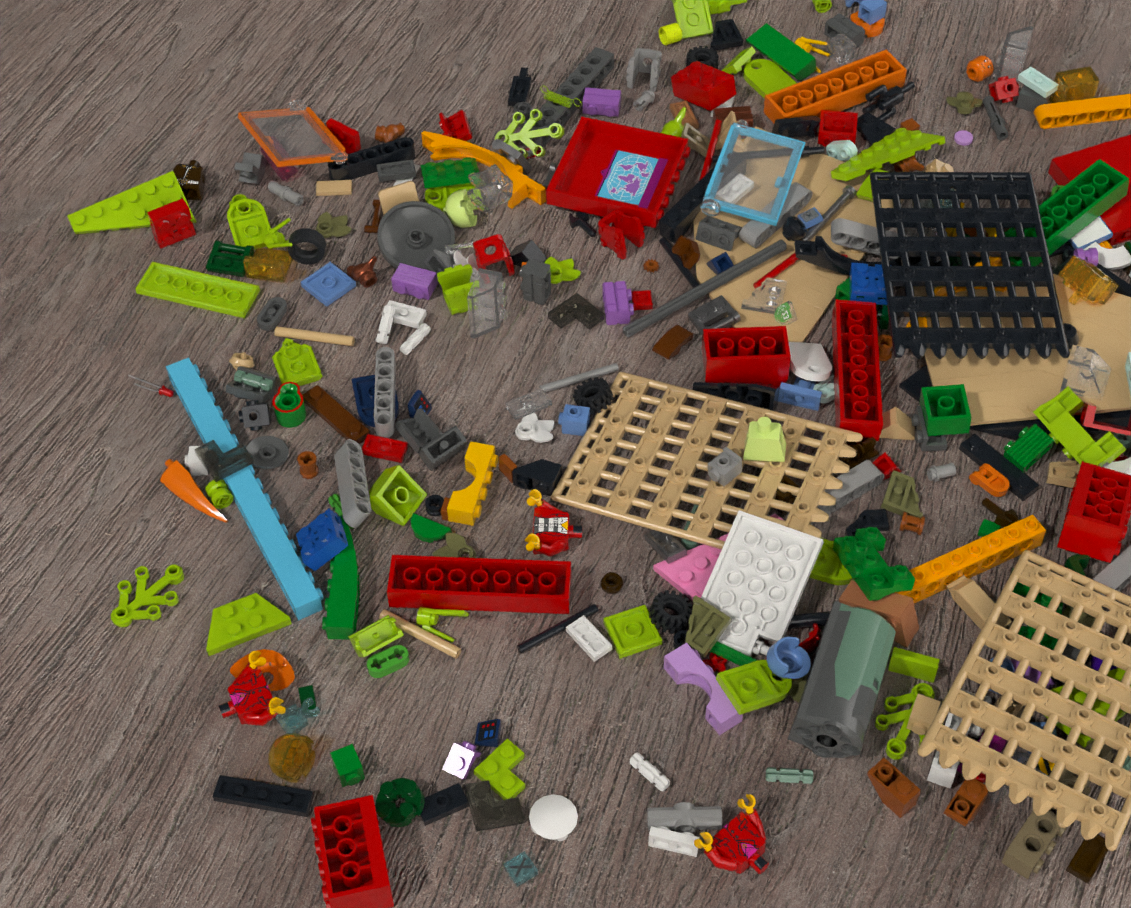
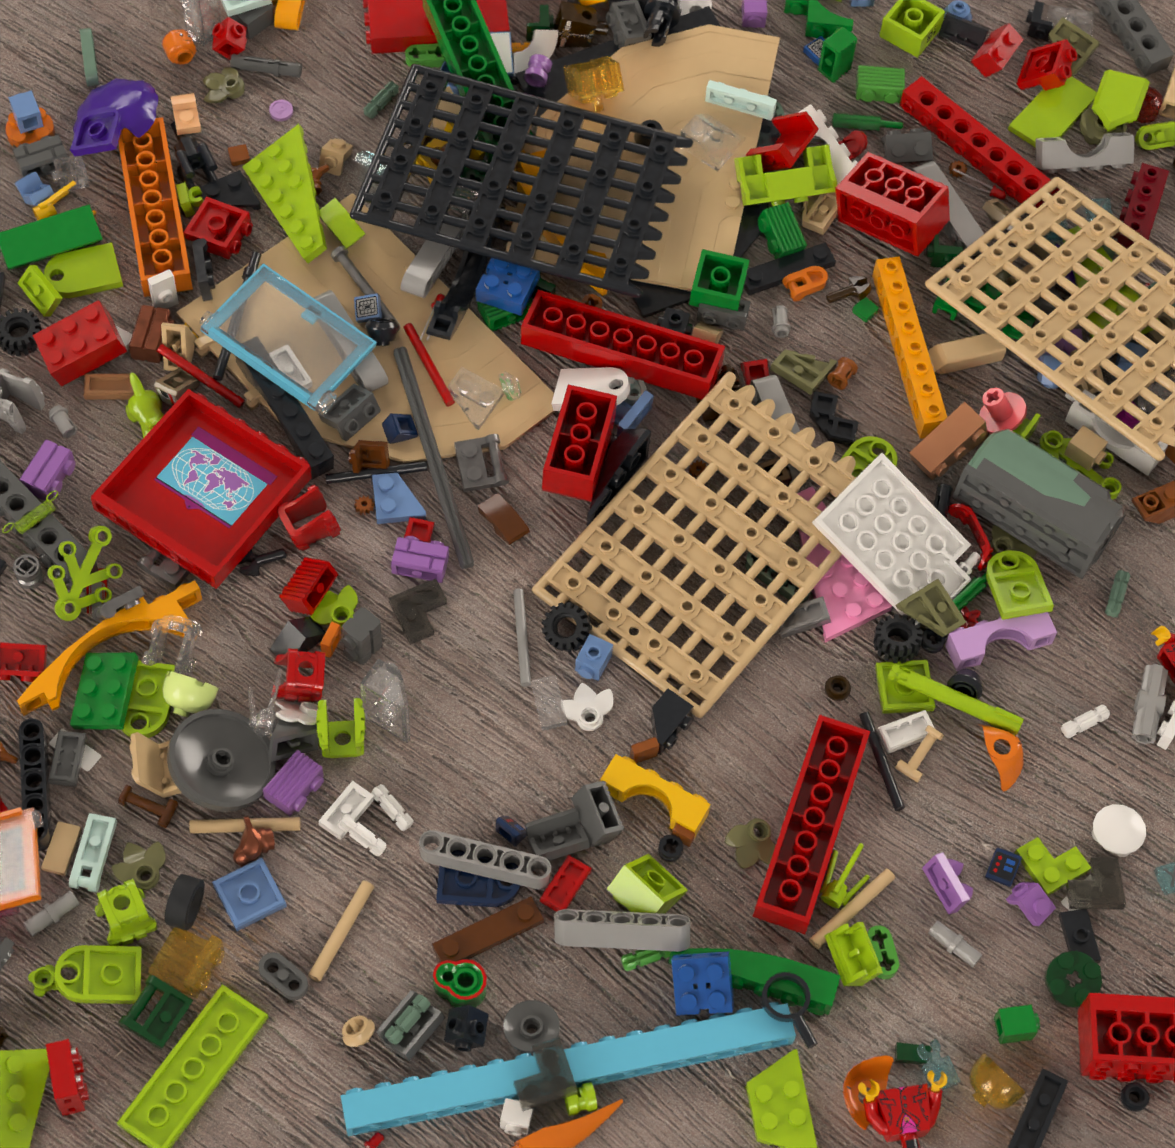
camera: 80 degrees left, 10 degrees up
(276, 239) = (152, 942): lime plant -> none
(296, 363) = (381, 964): lime tile -> none
(298, 213) = (126, 923): none -> lime piece
(303, 865) = (1140, 1092): none -> black plate
(307, 462) = (561, 975): dark orange bush -> none
(307, 603) = (797, 1017): none -> black piece
(333, 200) = (92, 852): none -> light aqua plate
(378, 269) = (238, 825): none -> tan piece
(408, 710) = (955, 943): none -> light grey pin
(428, 530) = (704, 865): green tile -> none
(470, 688) = (943, 878): none -> medium lavender tile
(550, 528) = (751, 729): torso -> none
(557, 648) = (911, 768): none -> tan piece
(568, 248) = (308, 585): none -> red brick
(588, 721) = (1010, 764): none -> orange piece
(629, 665) = (992, 715): none -> lime piece
(647, 669) = (967, 682): none -> black cone
(662, 279) = (394, 500): none -> medium blue wing
(725, 467) = (739, 526): light grey brick -> none
(765, 112) = (163, 290): none -> white plate
(765, 441) = (727, 461): yellowish green torso -> none
(788, 659) = (1006, 542): medium blue helmet -> none
(817, 33) = (33, 189): none -> medium blue bracket
(841, 149) = (263, 236): light aqua plate -> none
(854, 105) = (187, 198): none -> lime tile
(868, 568) = (902, 429): green bracket -> none
(893, 397) = (676, 320): none -> black brick
(895, 47) = (109, 110): none -> dark purple animal
(923, 85) = (185, 114): none -> light nougat brick
(930, 642) = (1002, 410): none -> coral piece
(952, 28) = (89, 57): none -> sand green beam

